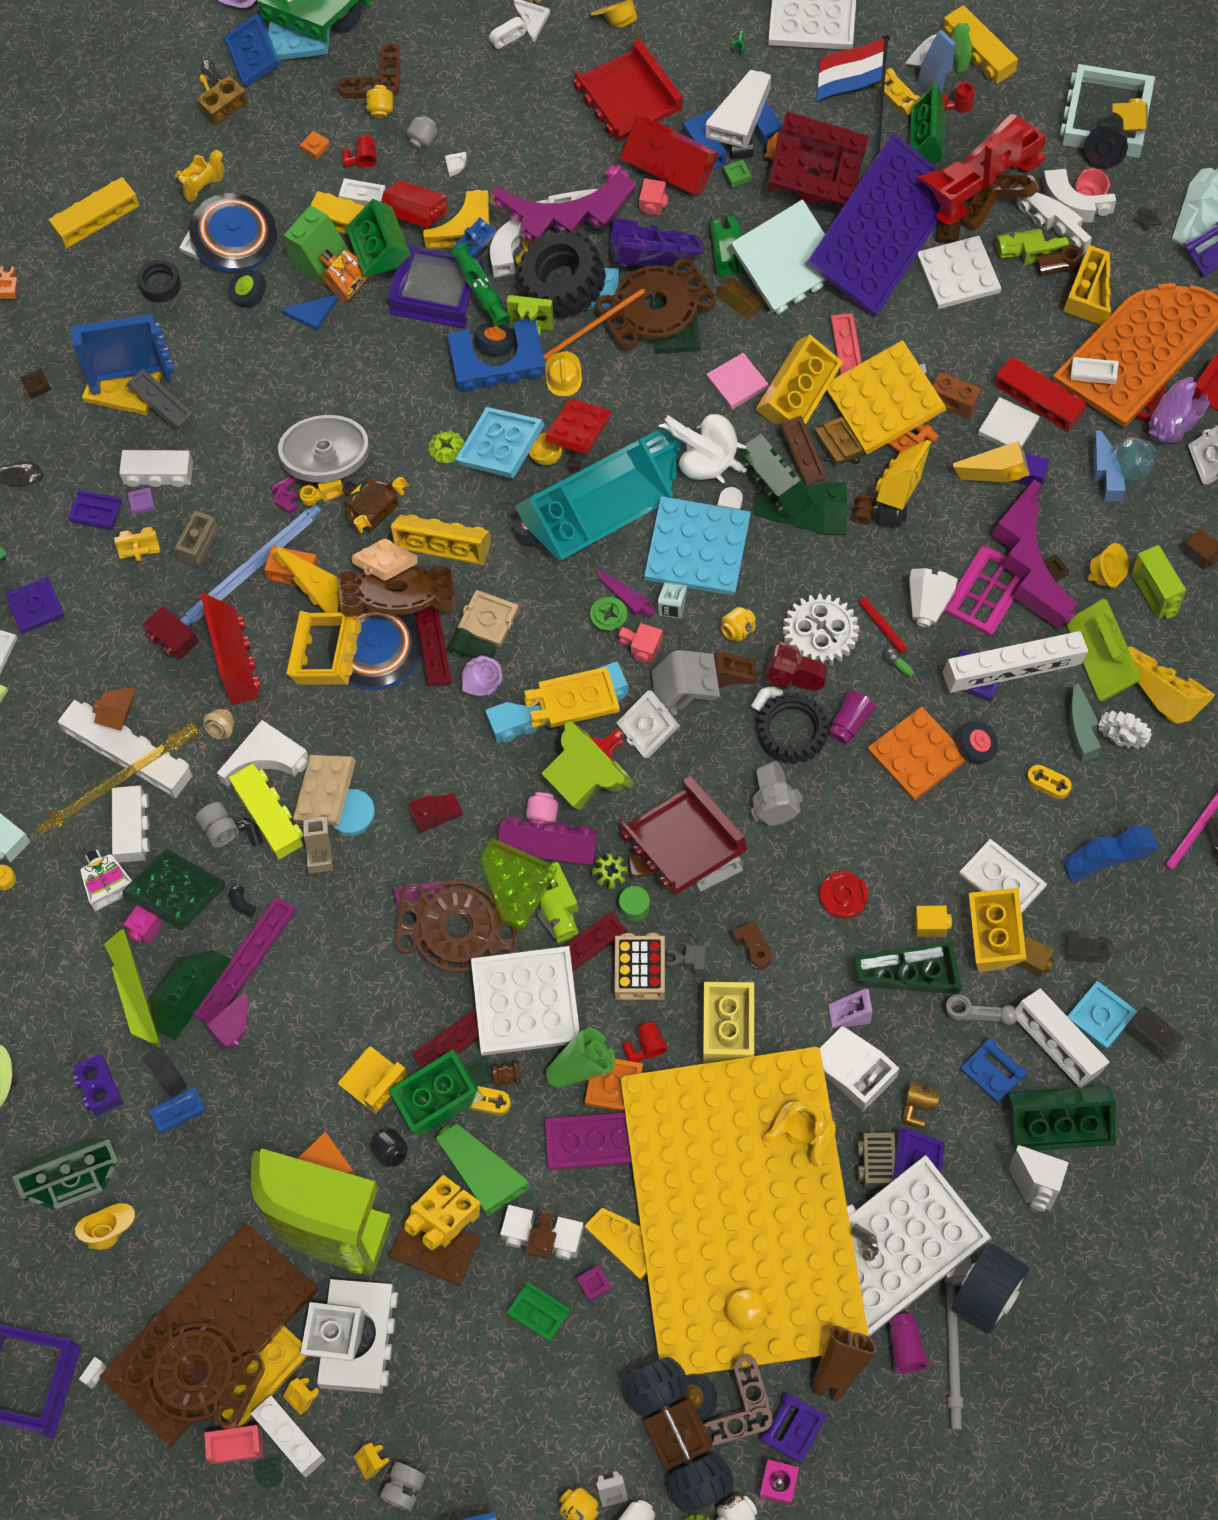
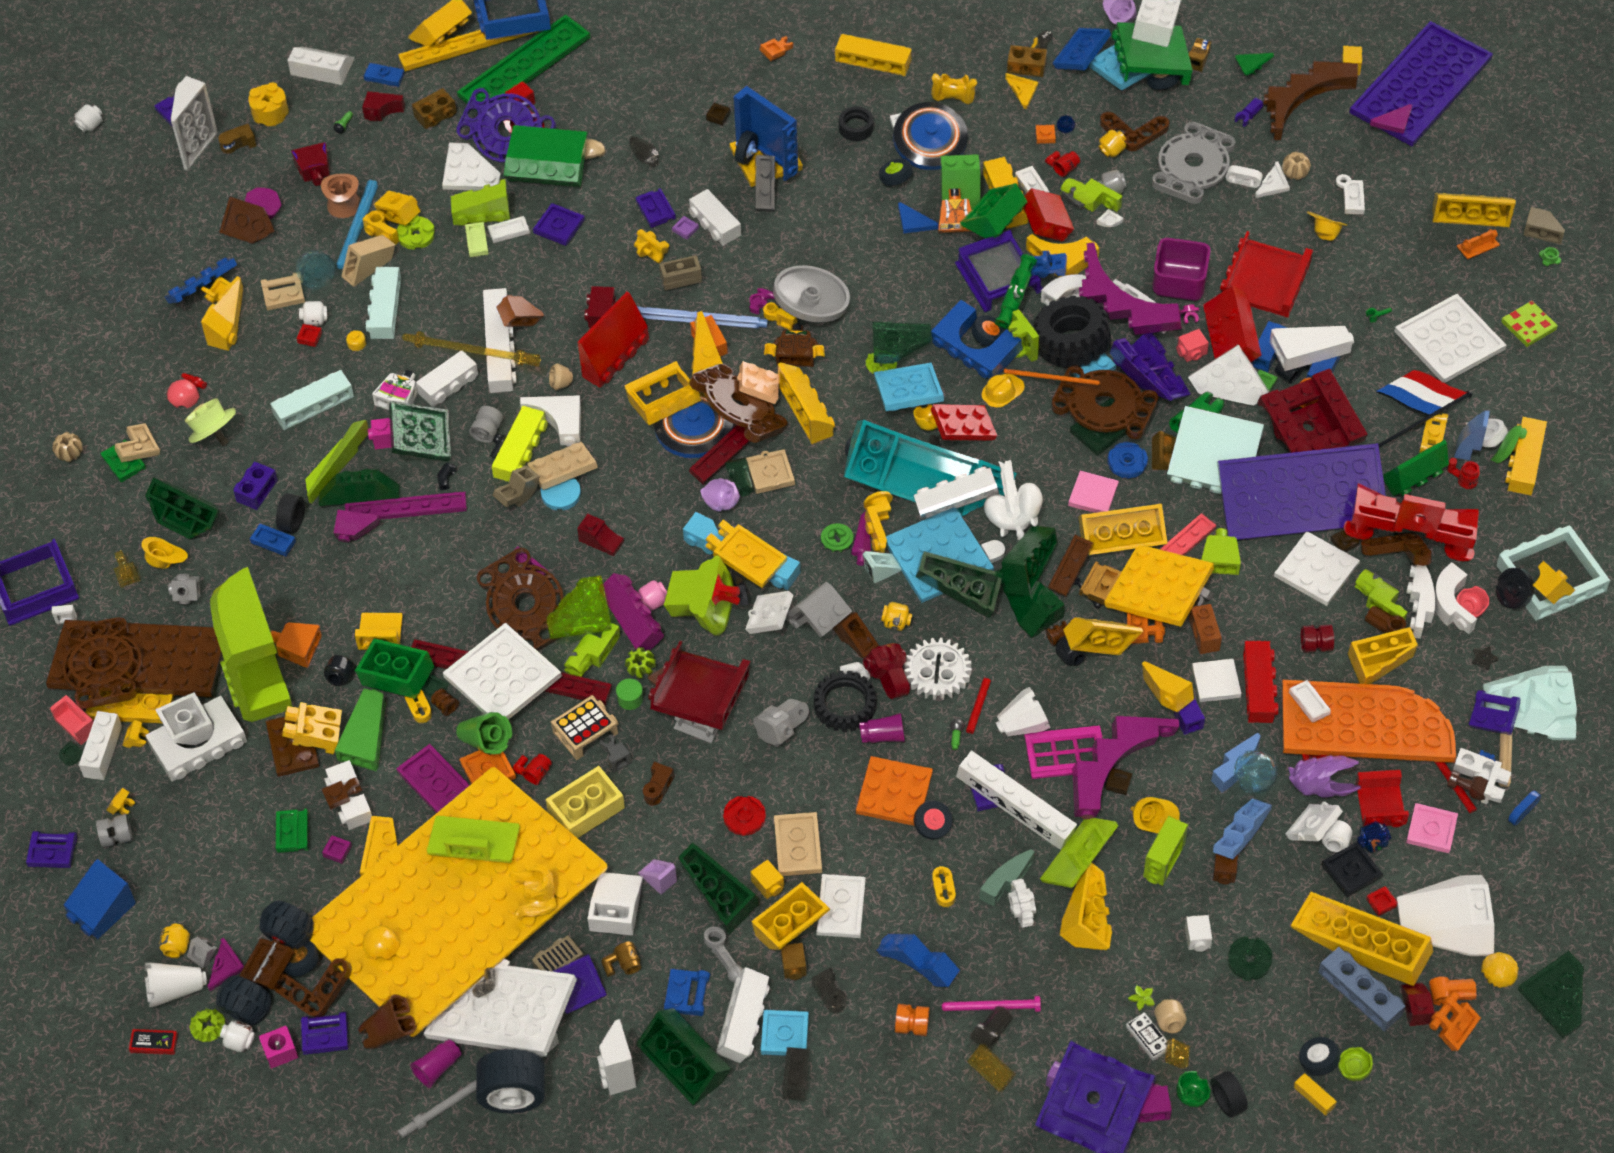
camera: 50 degrees right, 10 degrees down
(40, 964) = (312, 399): none -> light aqua brick
(92, 1279) = (125, 573): none -> clear yellow plate
(109, 384) = (746, 147): none -> black wheel
(167, 1232) = (191, 588): none -> light grey brick
(247, 126) = (1022, 87): none -> yellow tile
(320, 122) = (1065, 124): none -> clear blue plate
(419, 157) = (1090, 195): none -> lime plate
(439, 416) = (897, 340): none -> clear green plate
(455, 77) = (1193, 179): none -> light grey piece
(570, 145) = (1181, 269): none -> magenta piece
(598, 729) = (738, 582): none -> black tile
(622, 572) = (877, 510): none -> yellow piece
(642, 1475) = (224, 966): none -> magenta tile
(643, 643) = (832, 570): coral brick -> none
(657, 484) = (956, 493): none -> white slope
(697, 1148) = (473, 839): none -> lime bracket
(717, 193) = (1230, 378): none -> white plate
(727, 321) = (1127, 452): none -> blue plate
(757, 544) = (961, 581): none -> dark green wedge
(886, 328) = (1222, 552): none -> lime torso
(912, 870) = (798, 844): none -> tan plate
(1034, 320) = (1317, 638): none -> dark red wheel
(1171, 899) = (912, 1020): none -> orange wheel
(1179, 510) = (1242, 829): none -> medium blue slope

